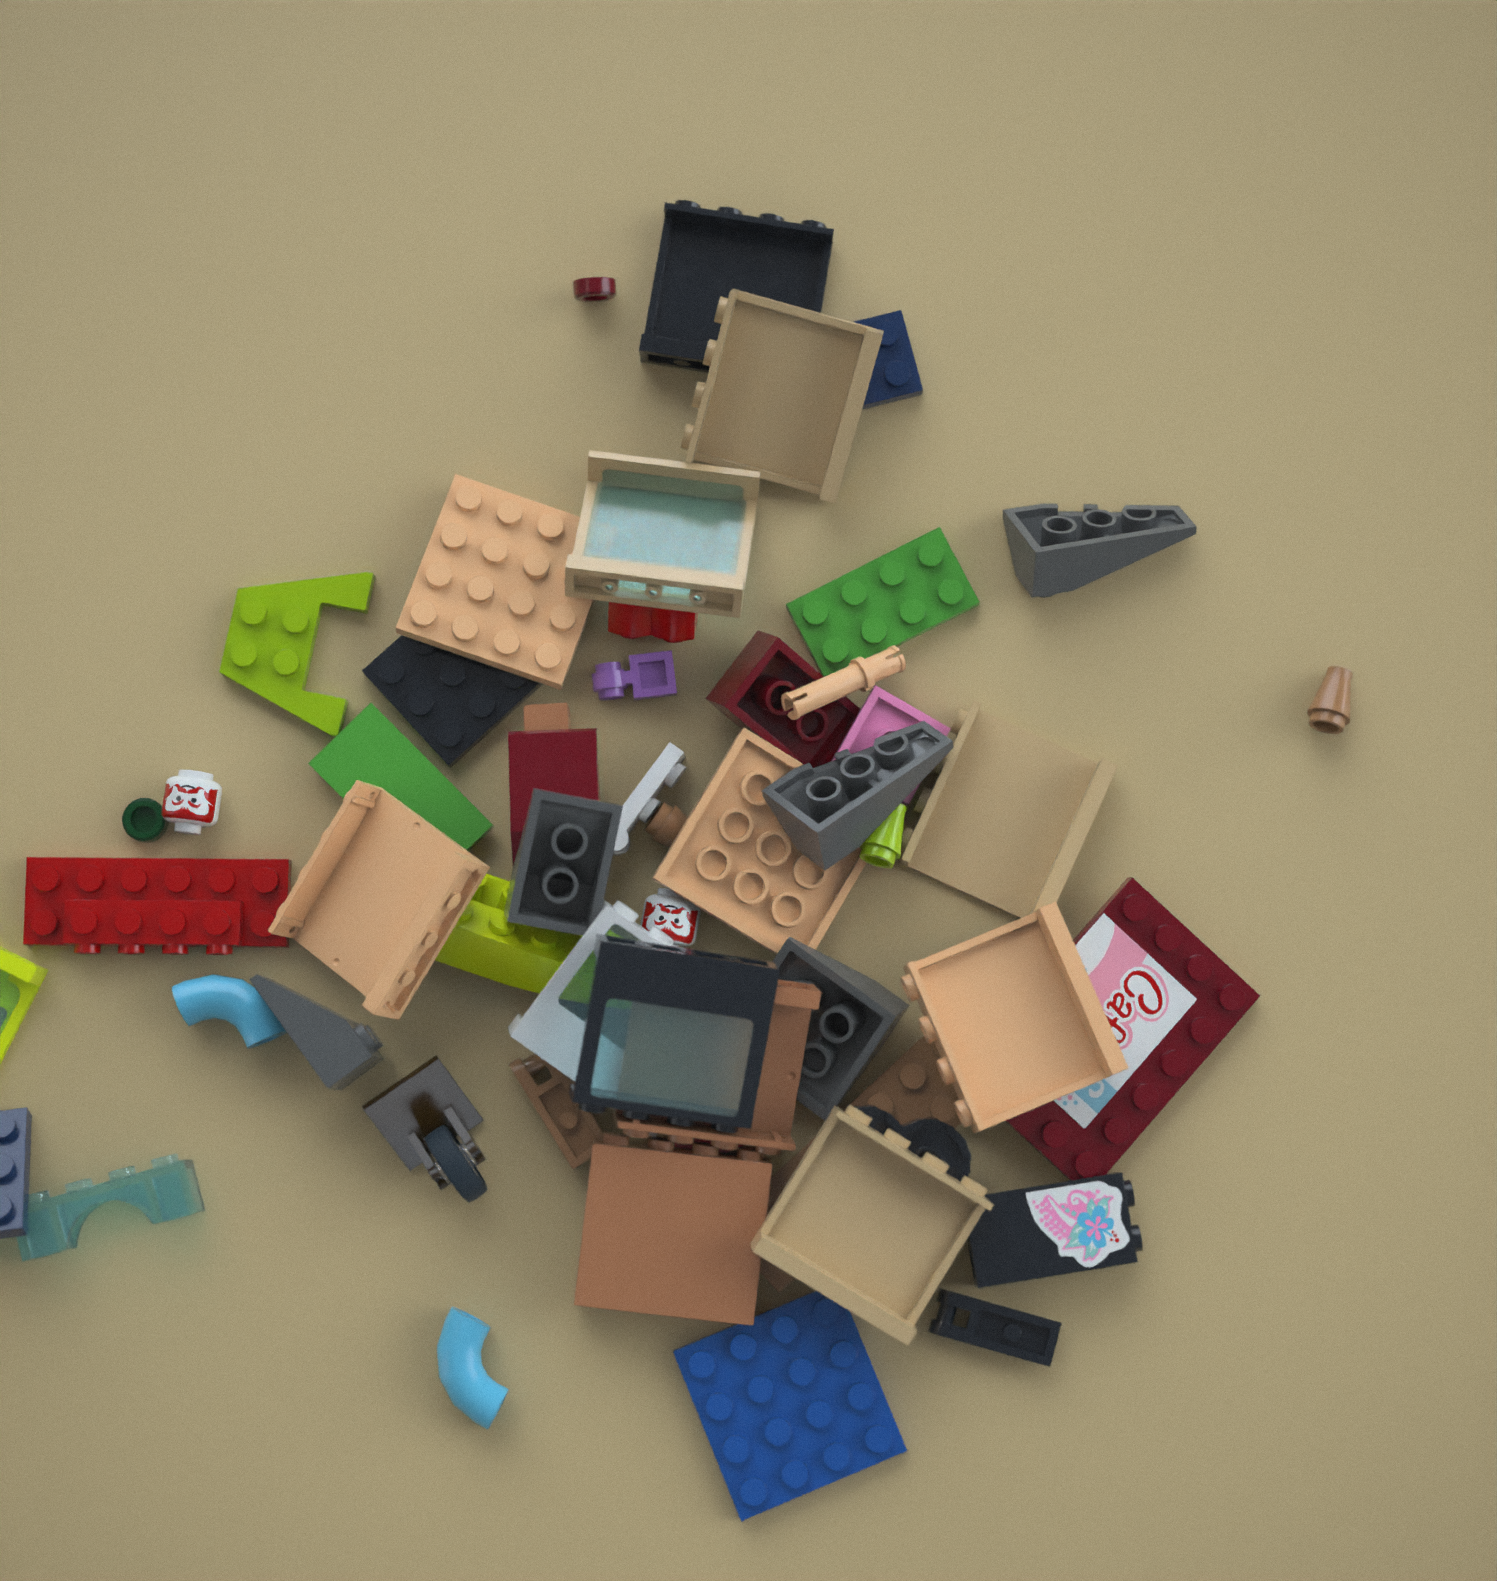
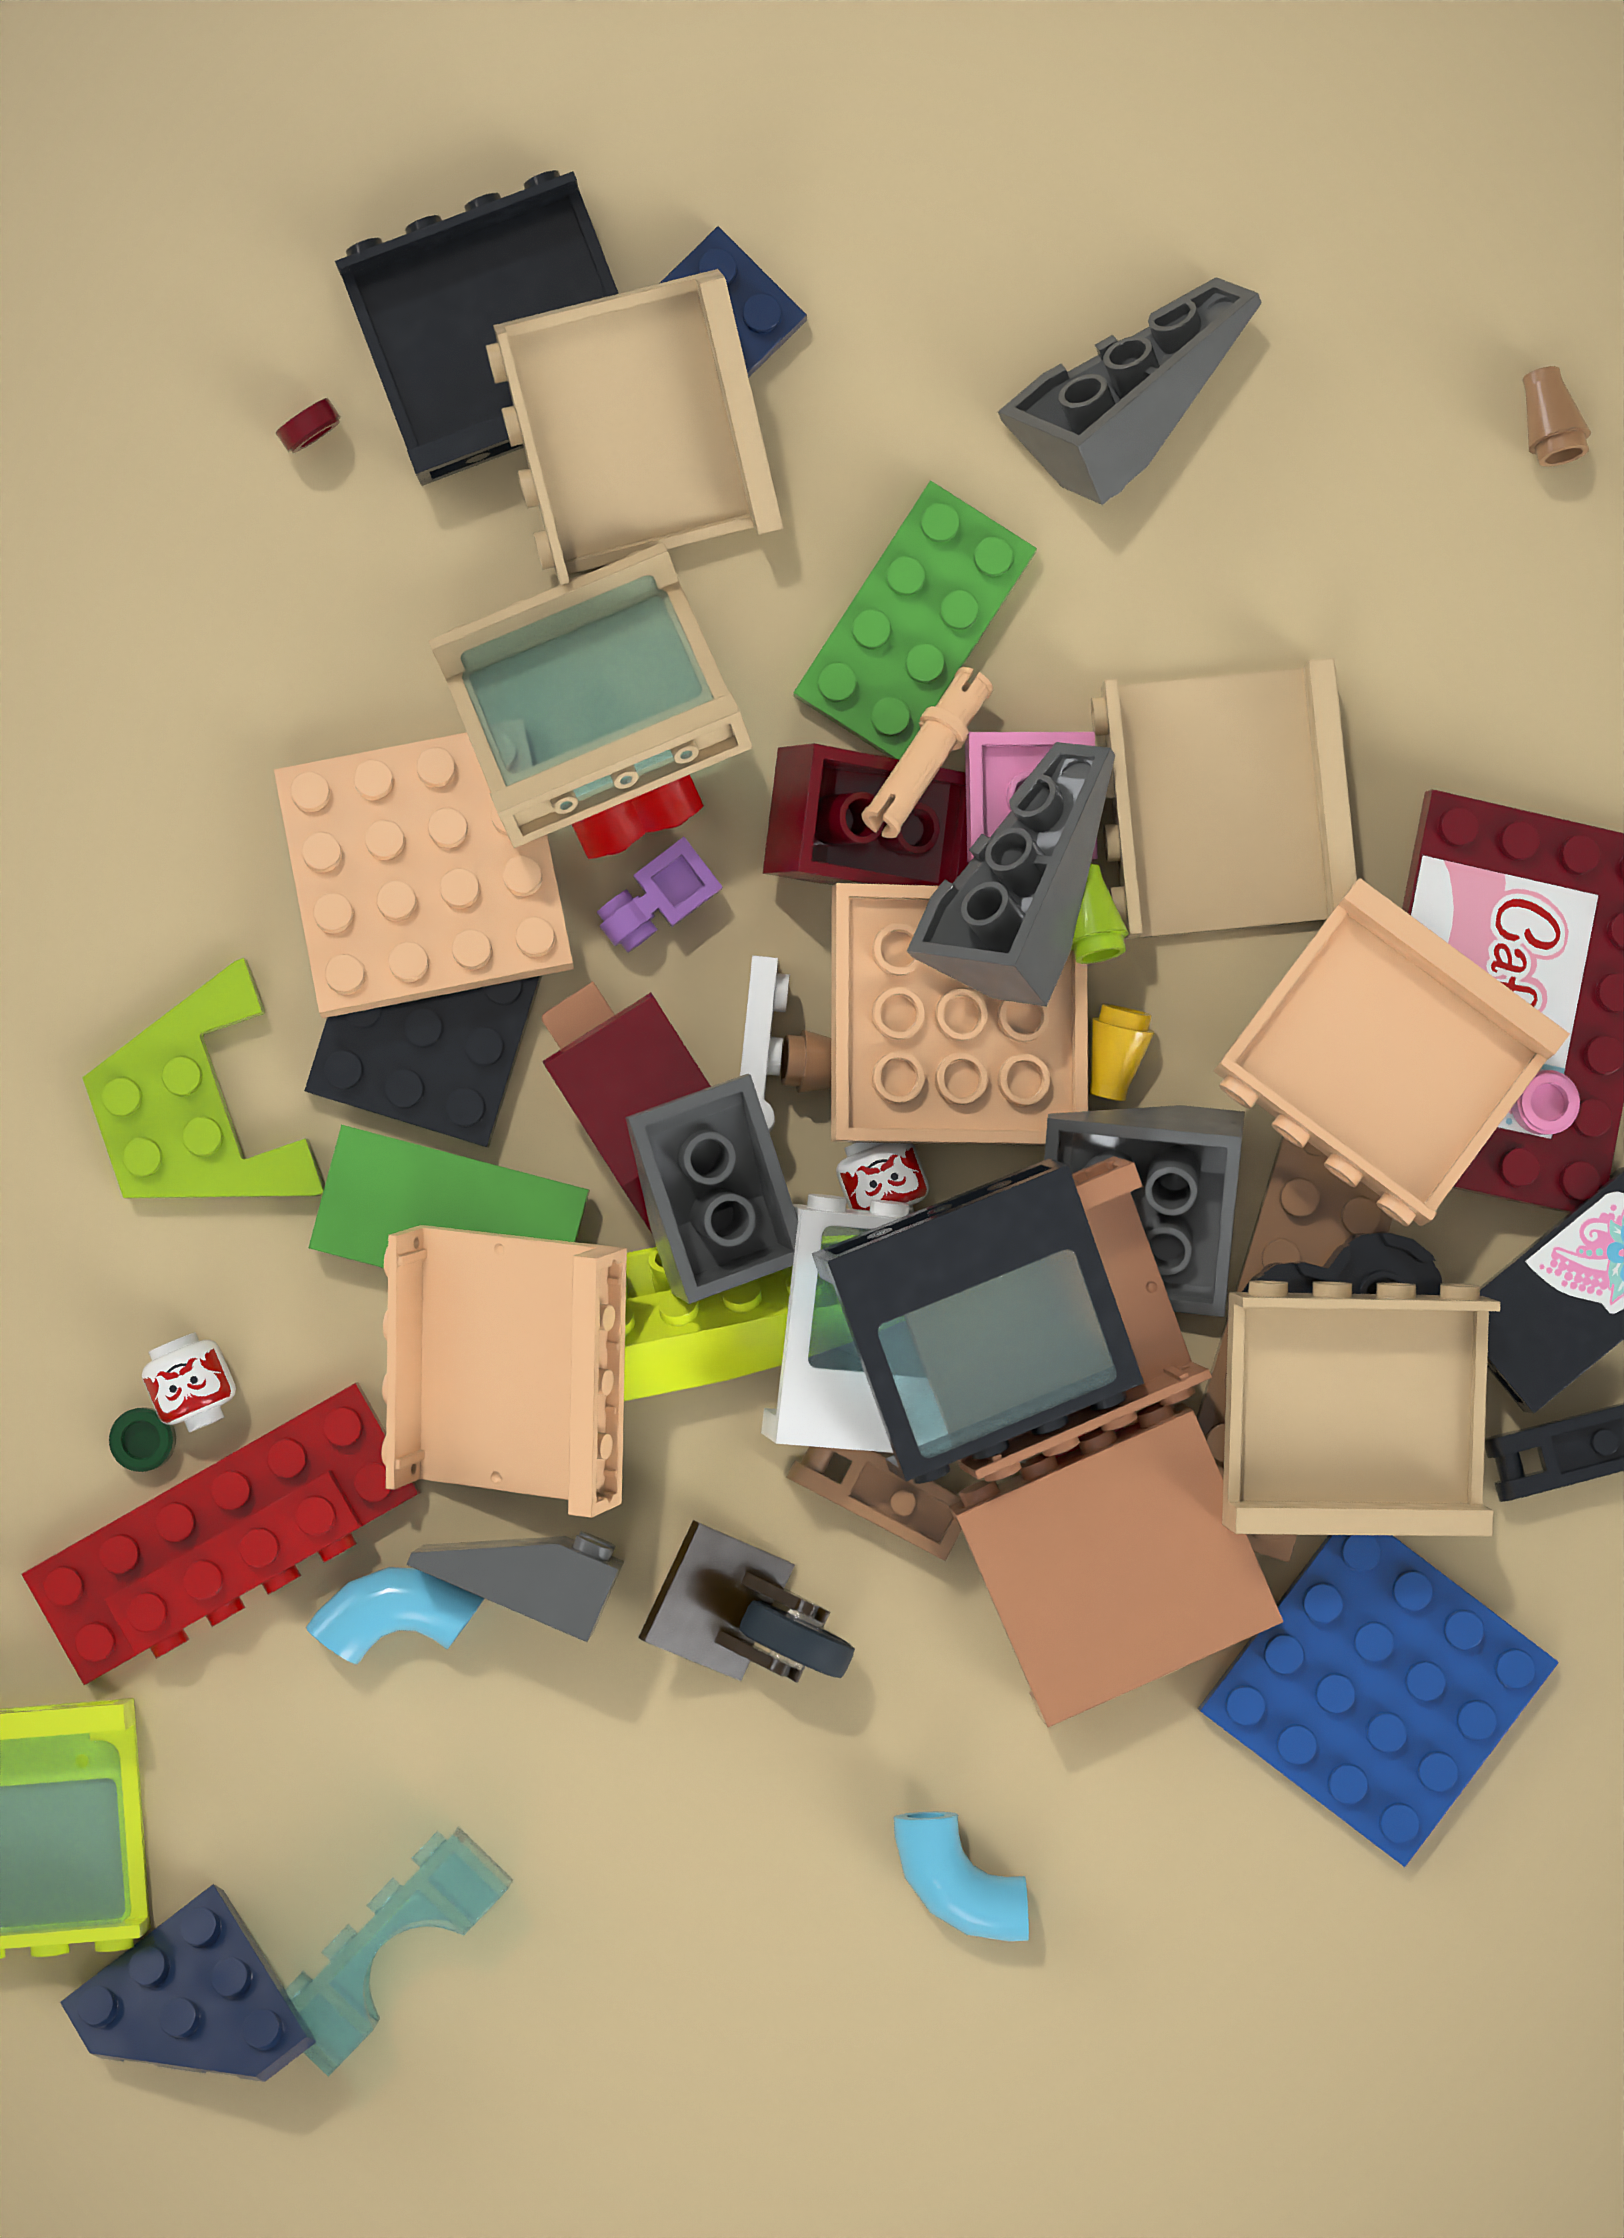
camera: 30 degrees left, 5 degrees up
(855, 924) = (1118, 1047): none -> yellow cone
(1093, 1105) = (1547, 1104): none -> bright pink tile

